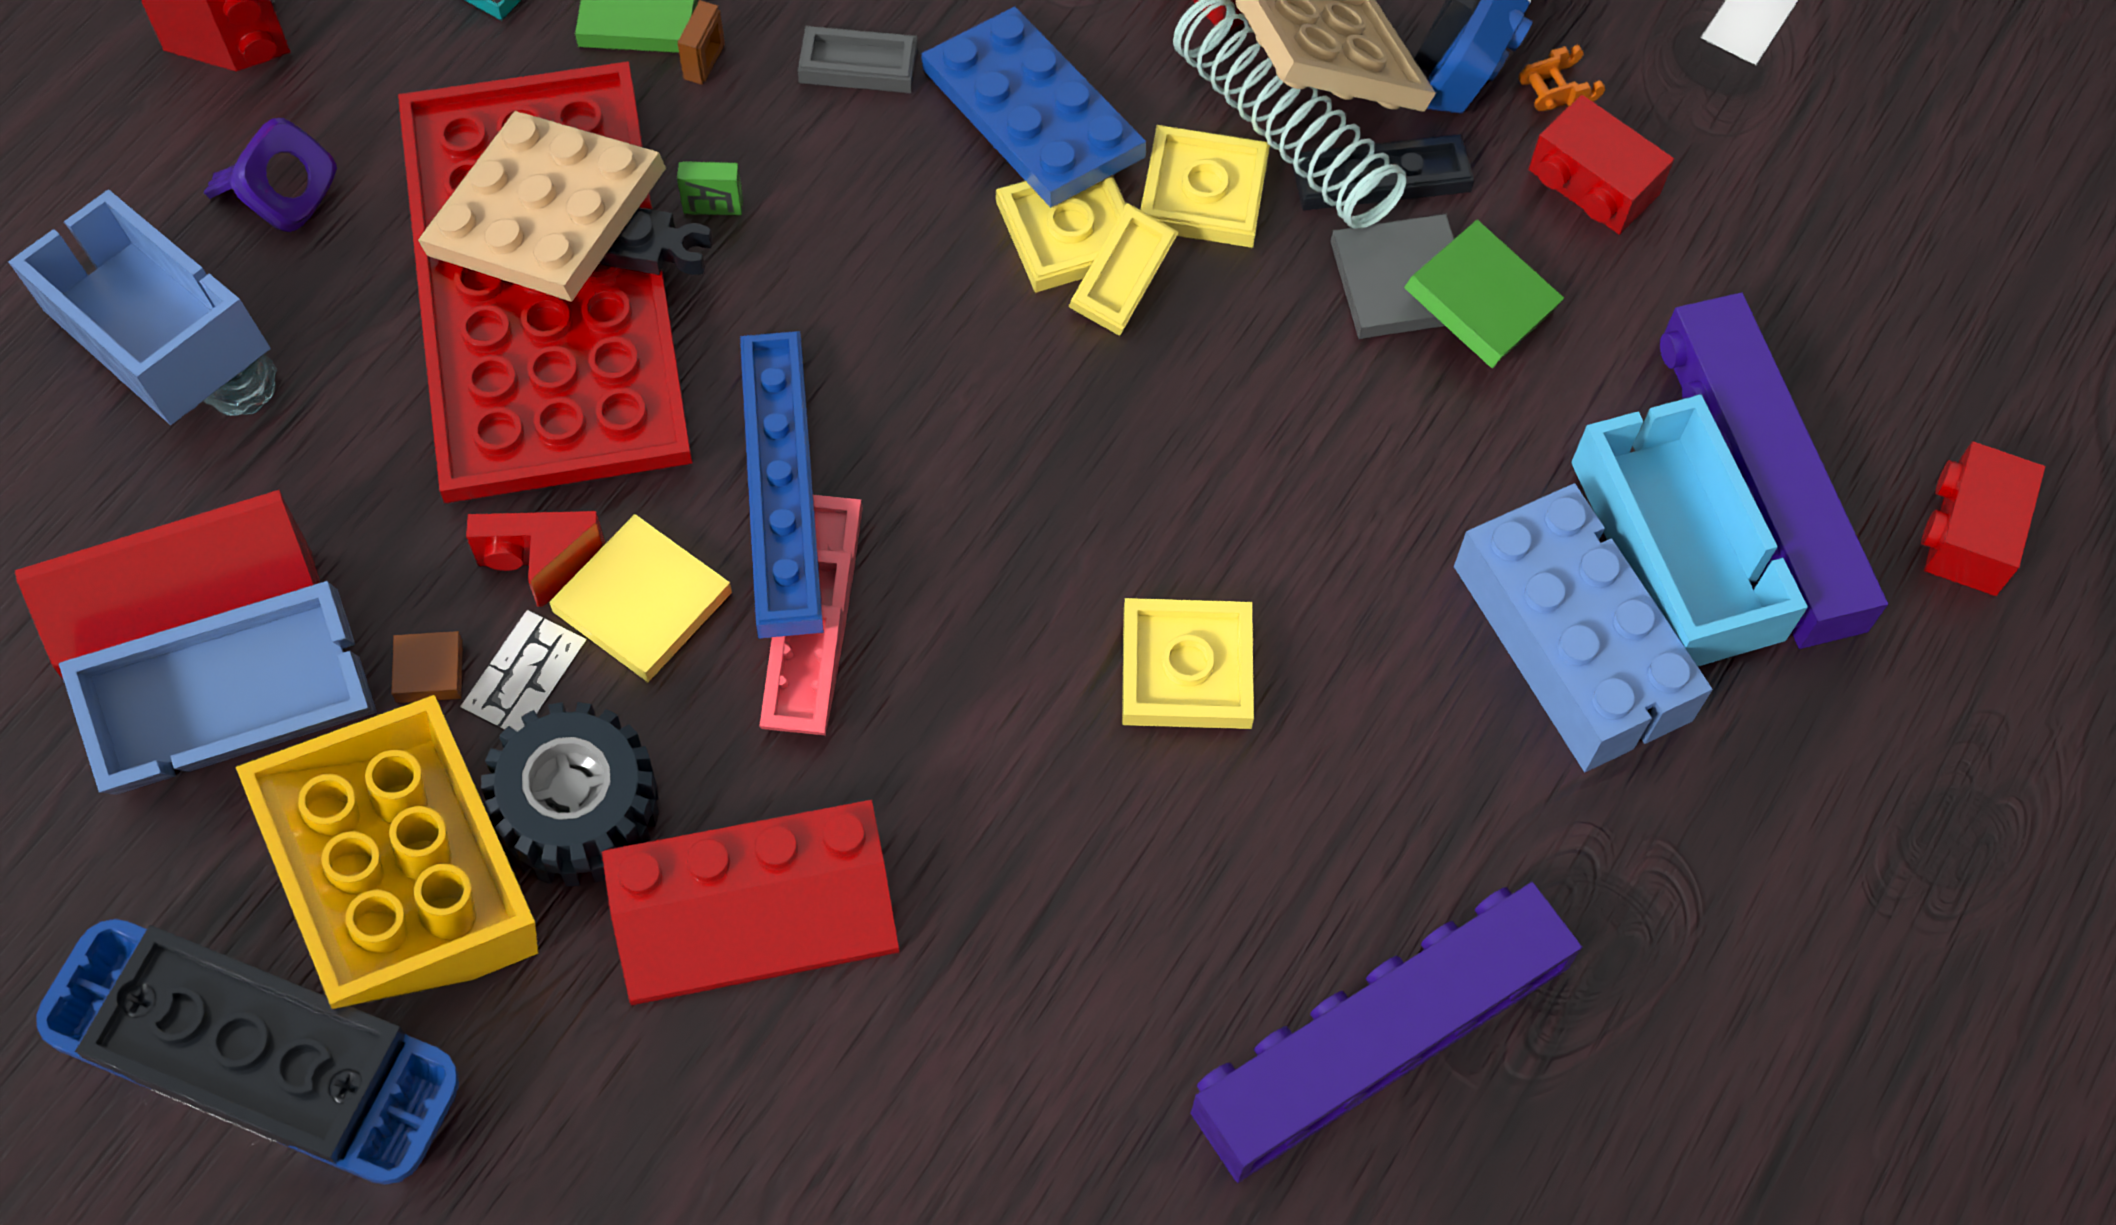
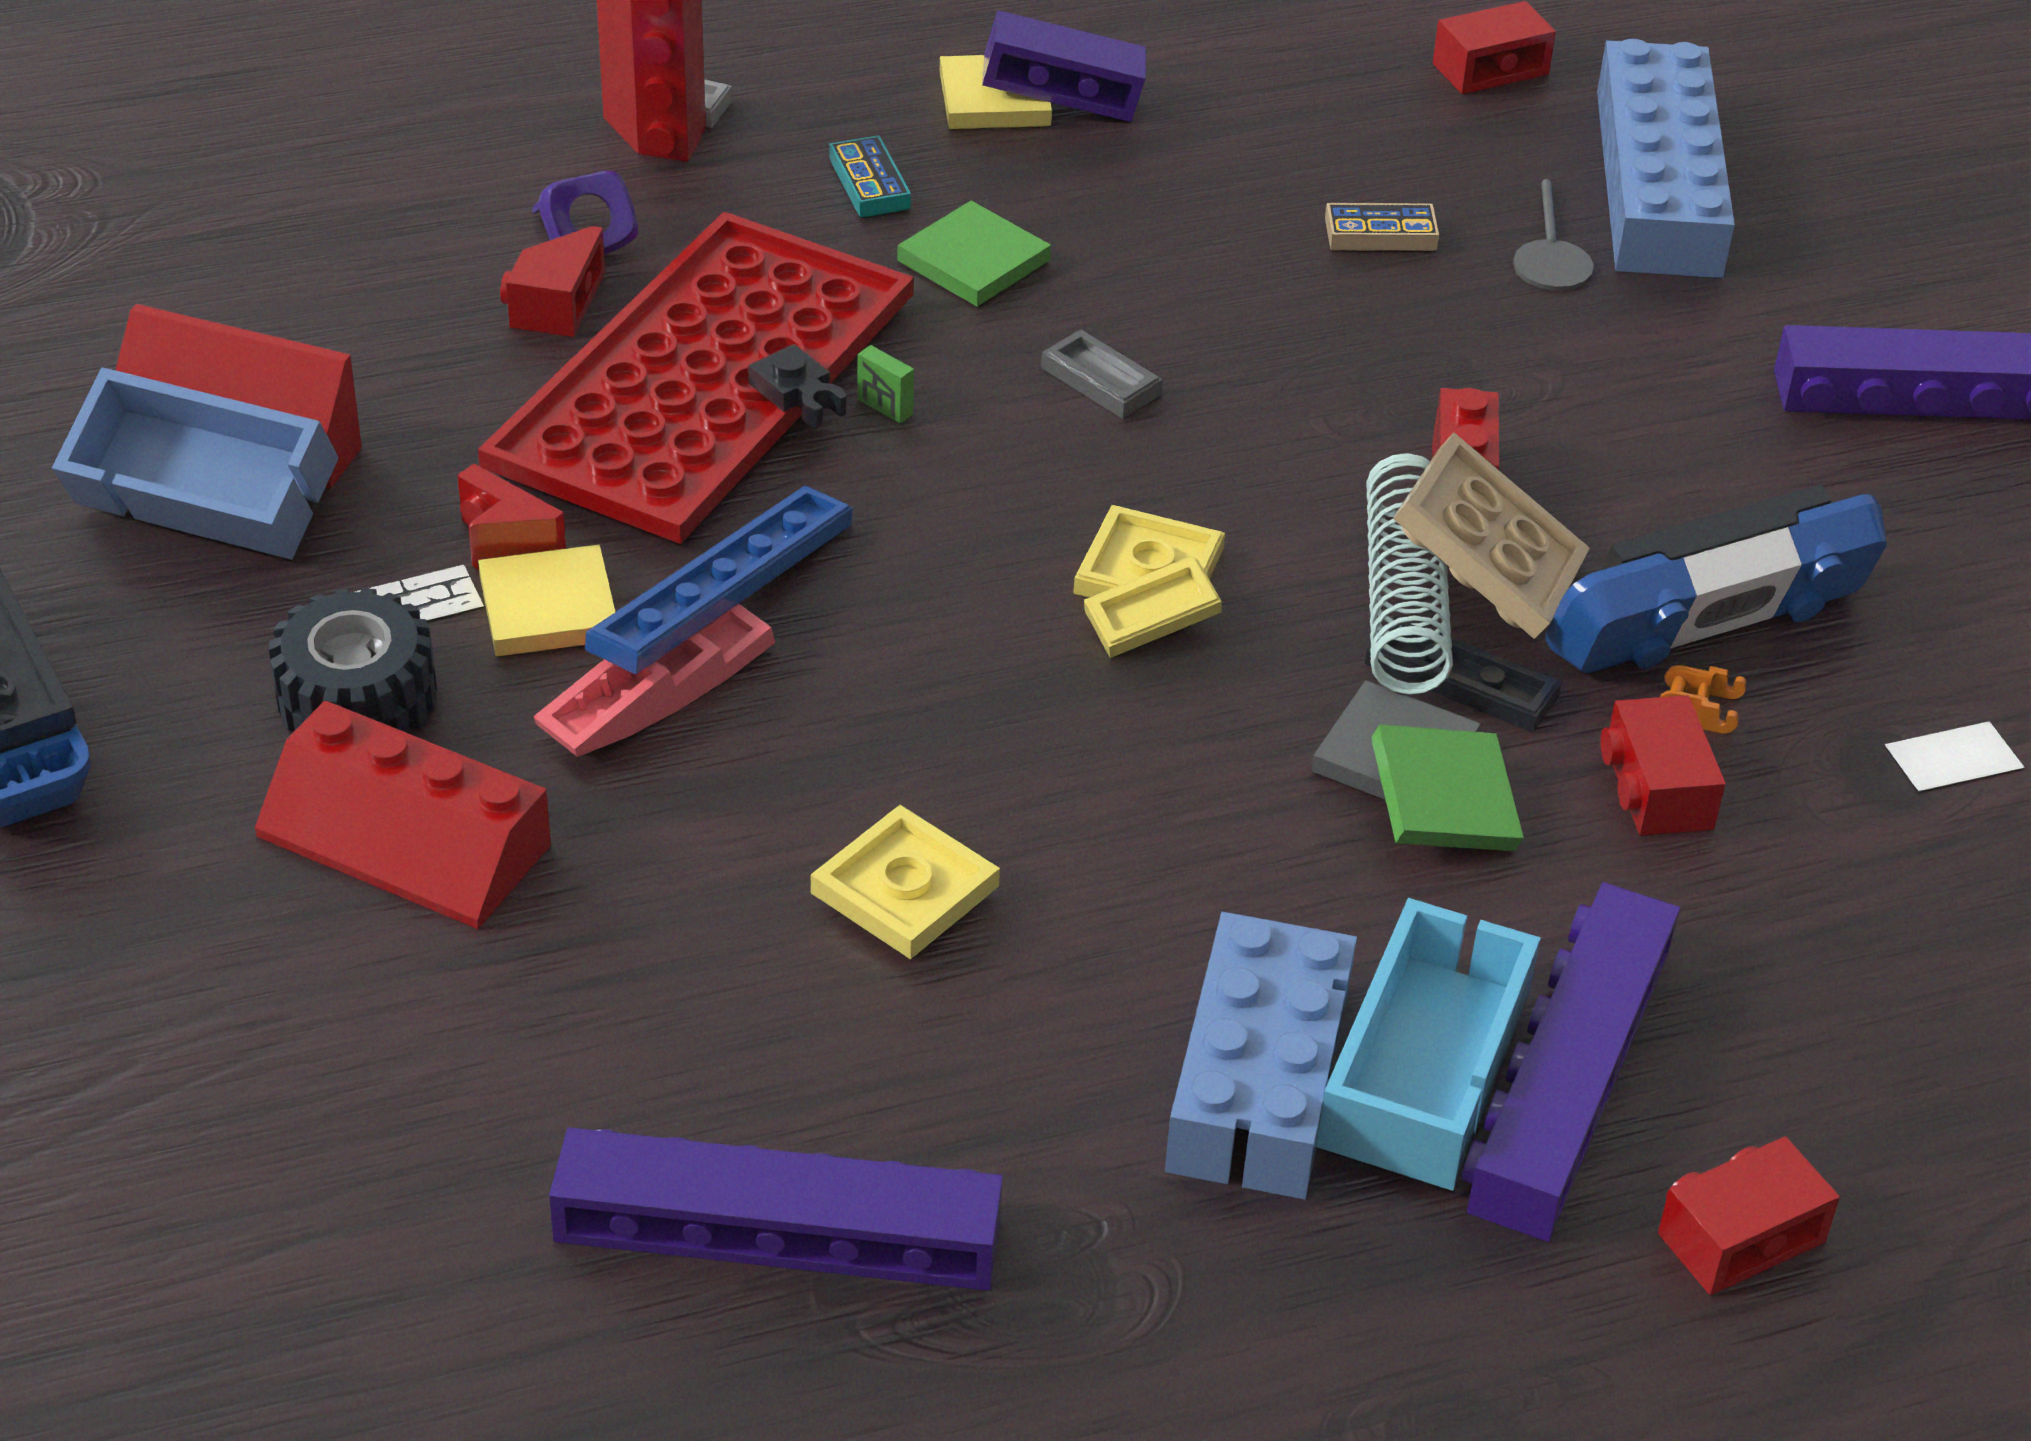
camera: 40 degrees right, 20 degrees down
(144, 308) = (392, 249): medium blue piece -> none
(247, 393) = (426, 318): clear light blue plate -> none
(322, 268) = (555, 283): none -> red slope
(389, 857) = (184, 621): yellow slope -> none
(427, 666) = (354, 552): dark orange tile -> none
(542, 205) = (739, 314): tan plate -> none
(701, 42) = (983, 295): dark orange tile -> none
(1033, 106) = (1203, 468): blue plate -> none
(1206, 184) = (1293, 599): light yellow tile -> none

